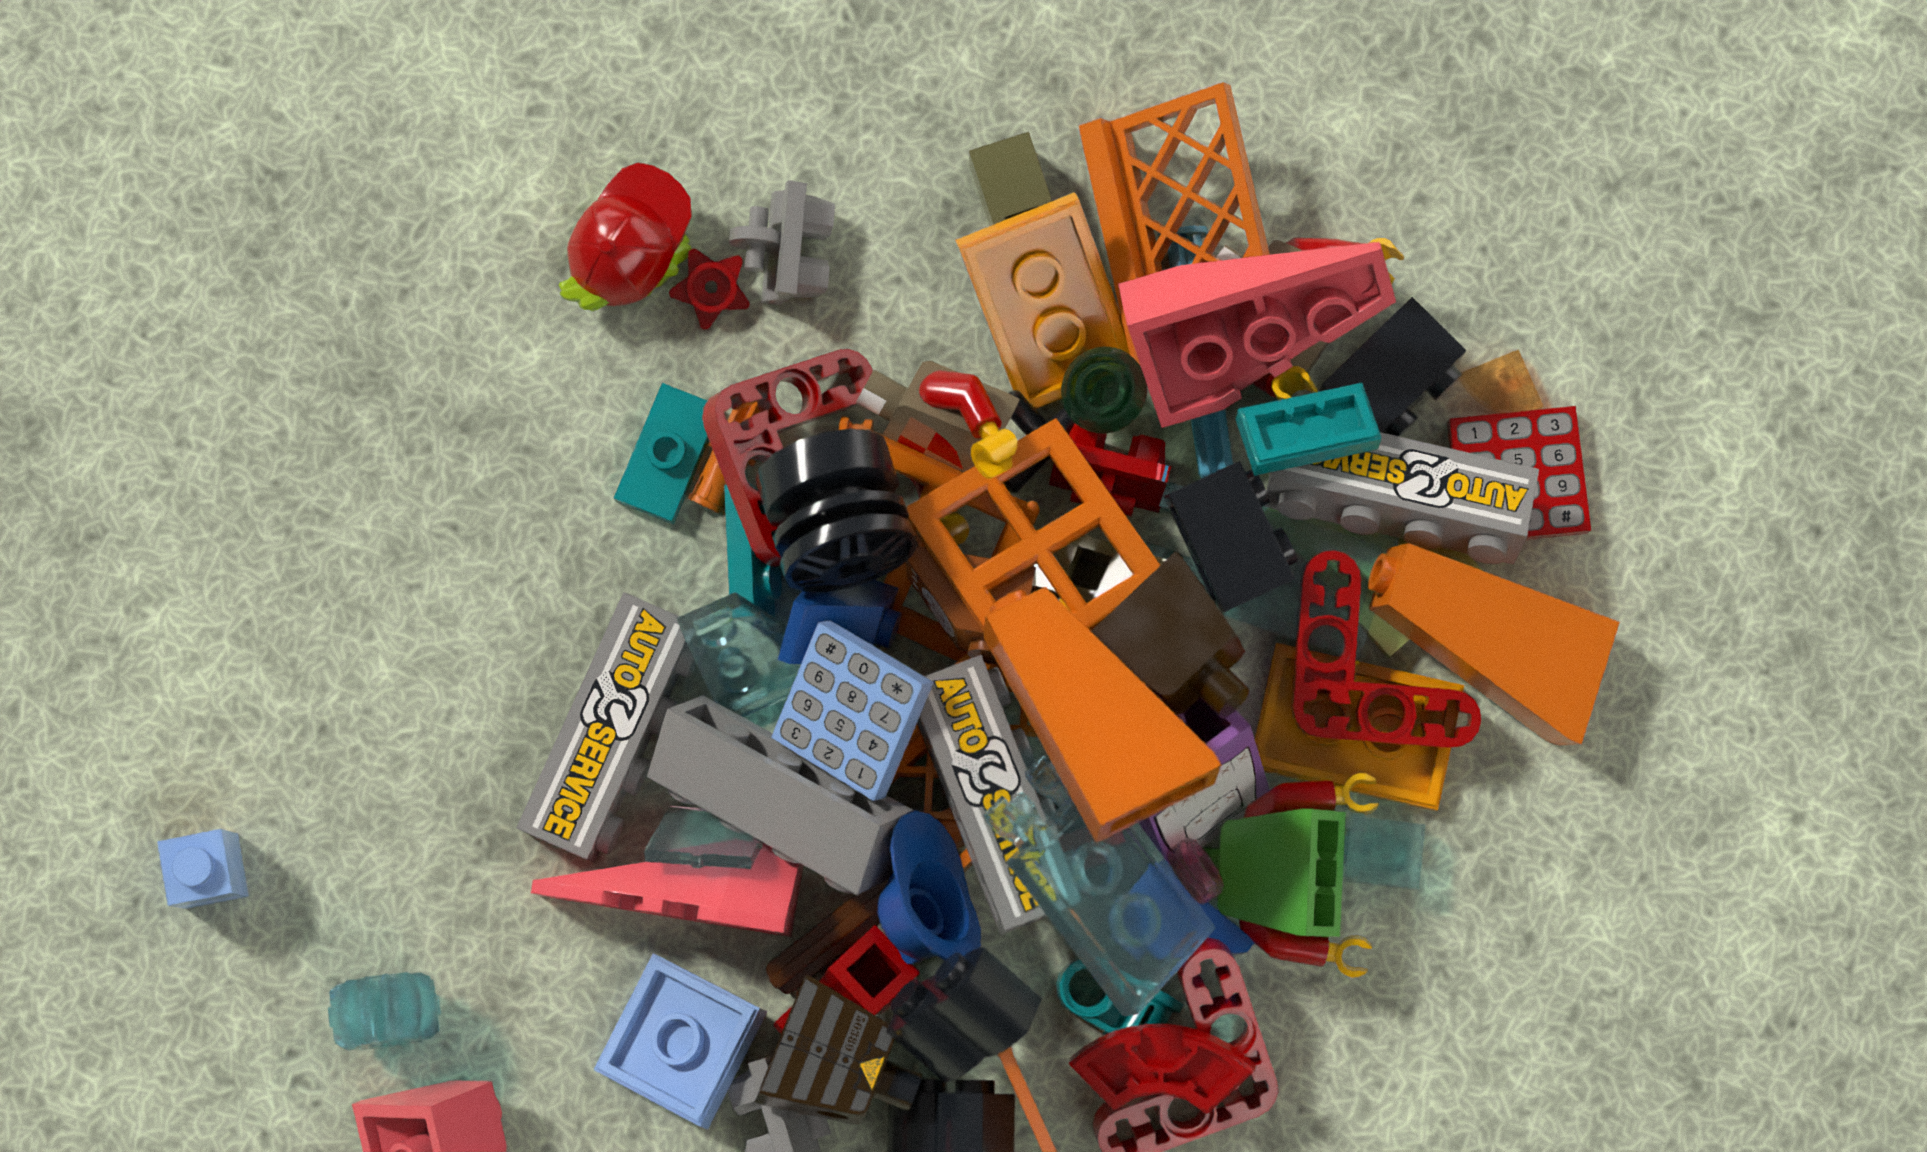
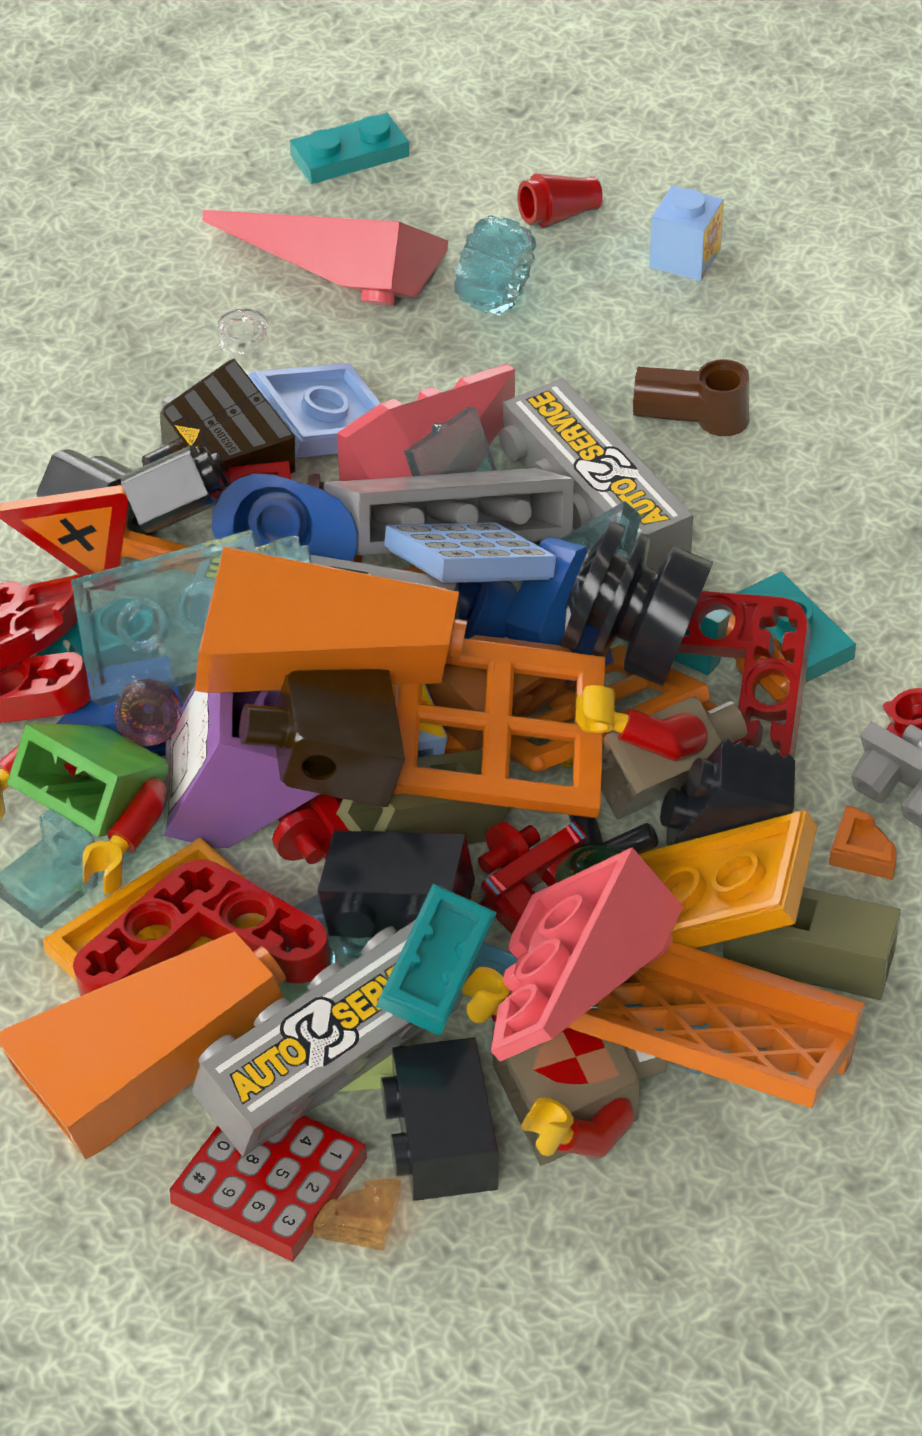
camera: 120 degrees right, 35 degrees down
(218, 1041) = (554, 198): none -> red cone
(439, 723) = (712, 396): none -> reddish brown piece
(881, 249) = (862, 846): none -> orange tile
(960, 325) = (729, 792): none -> black brick

